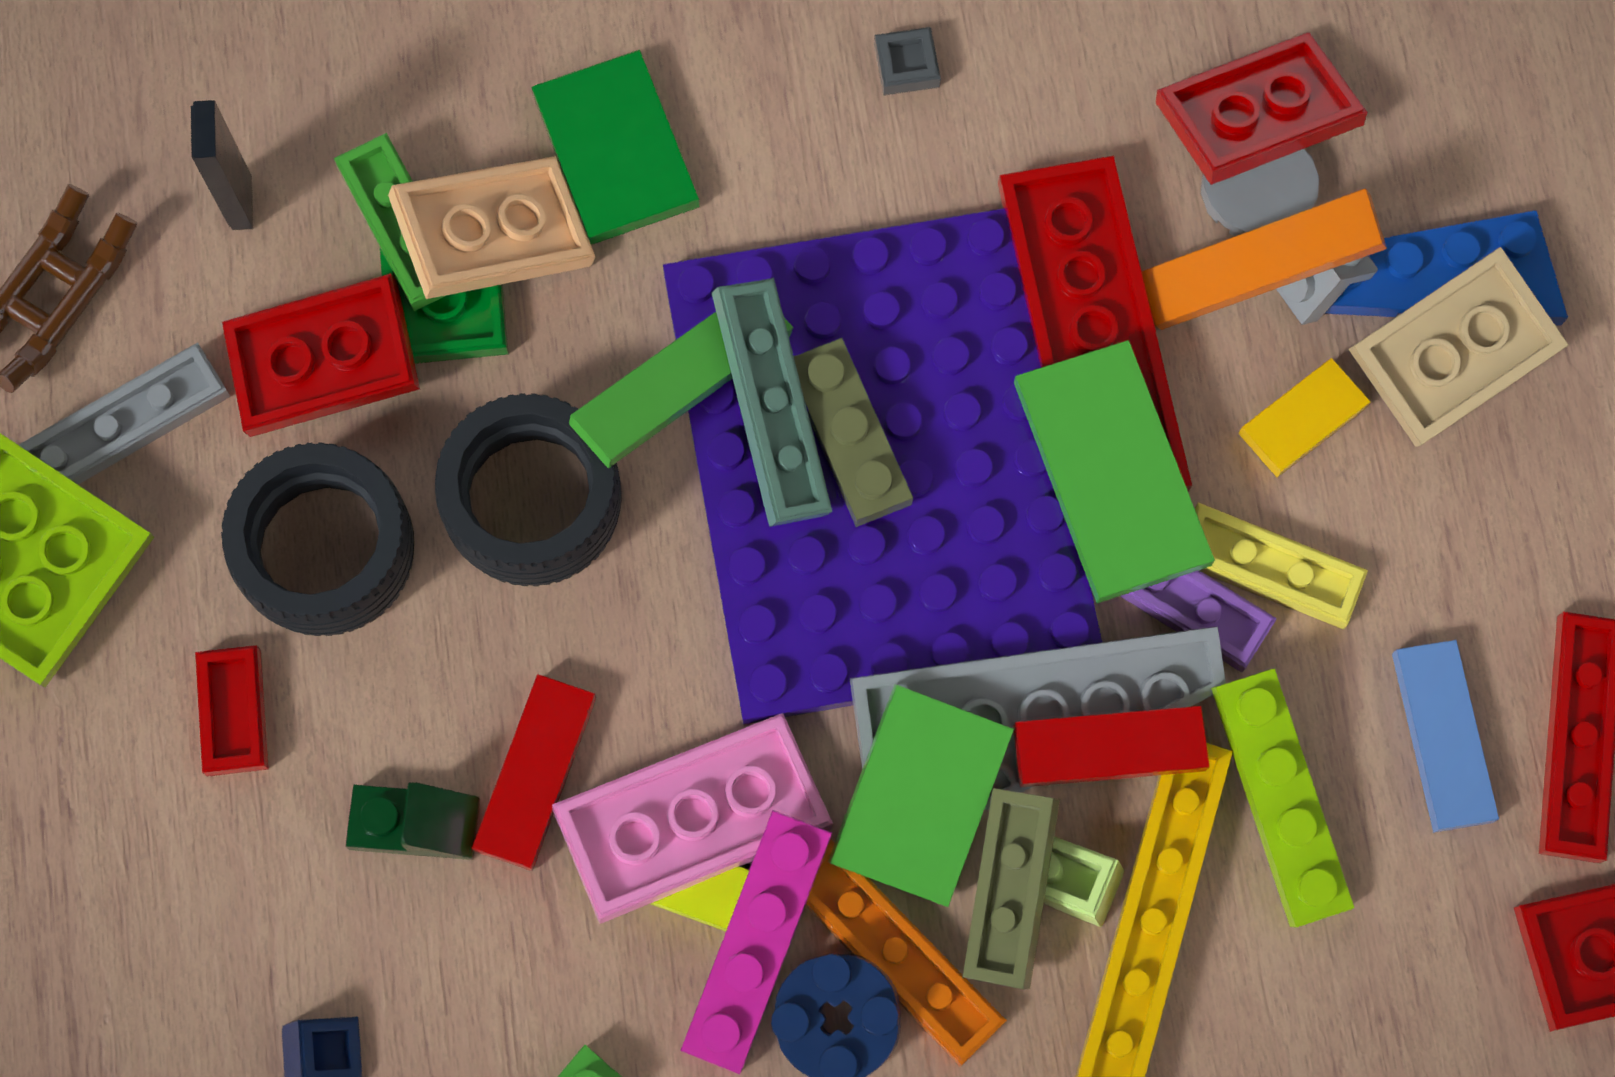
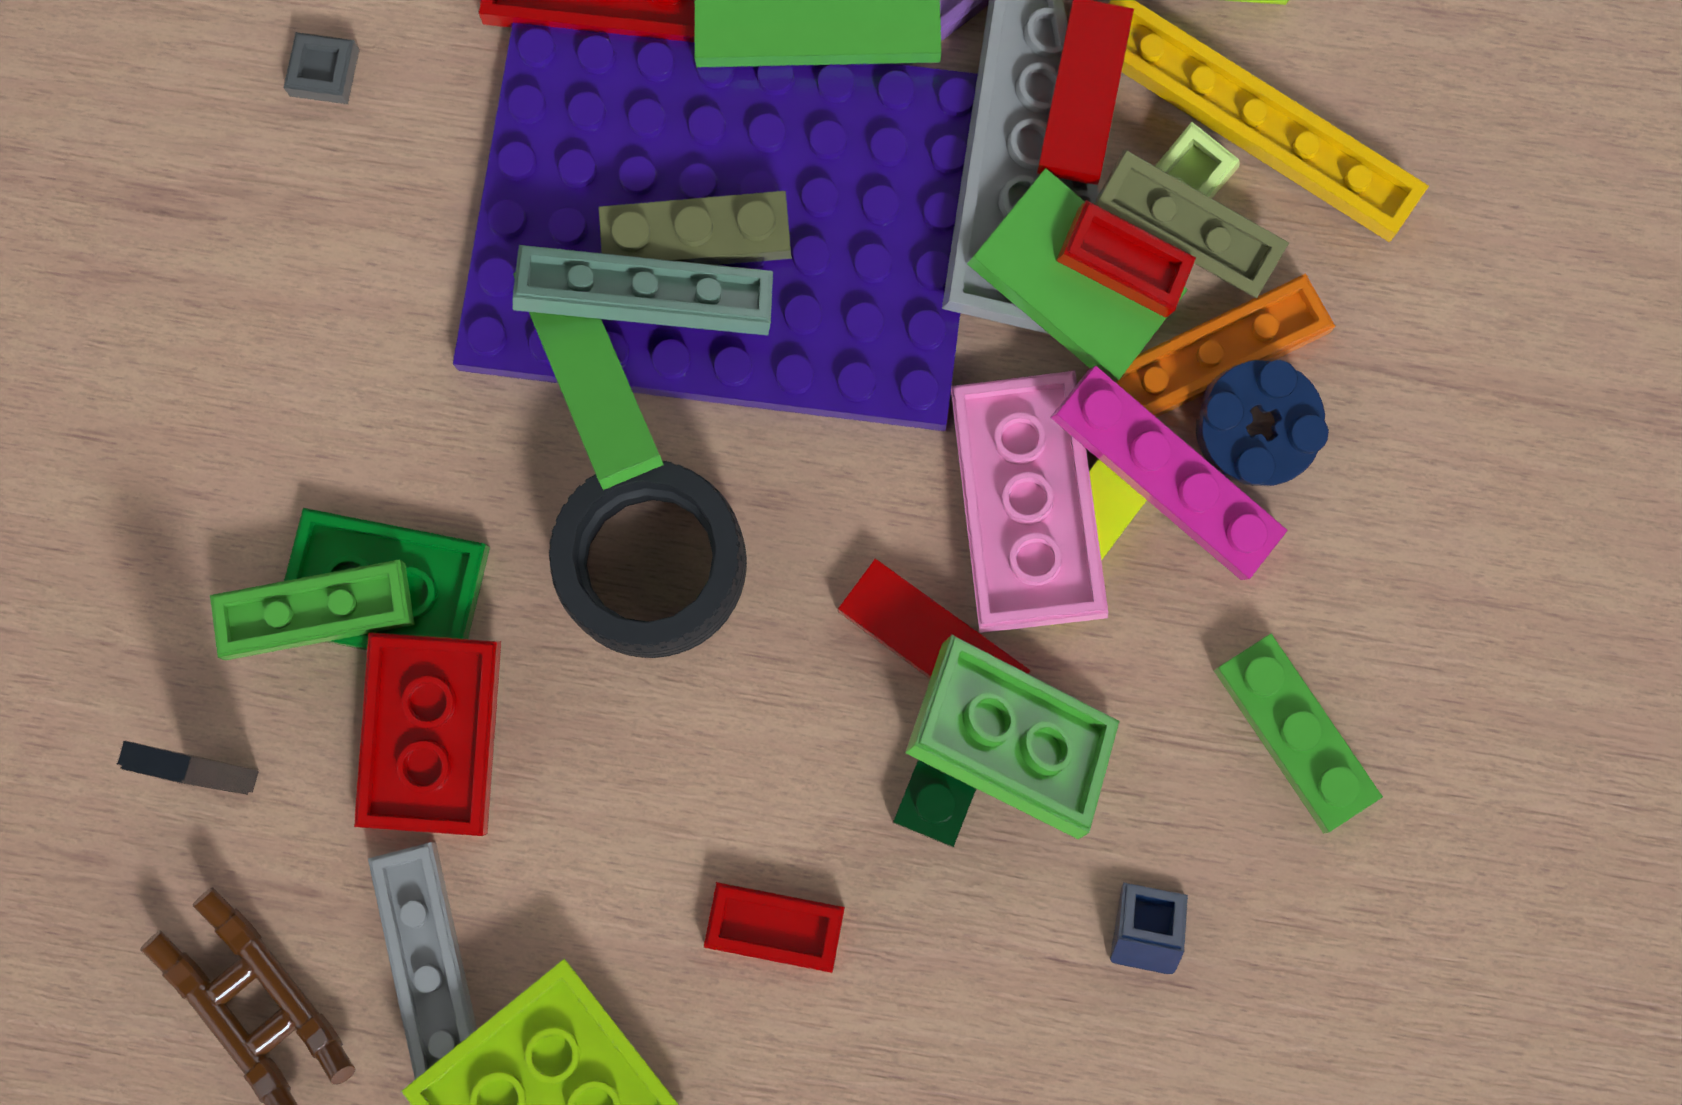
camera: 65 degrees left, 5 degrees up
(278, 482) = (558, 750): black tyre -> none
(455, 865) = (1013, 737): none -> bright green tile
(491, 226) = (352, 519): light nougat tile -> none
(615, 147) = (306, 375): green tile -> none
(950, 834) = (1126, 259): none -> red tile

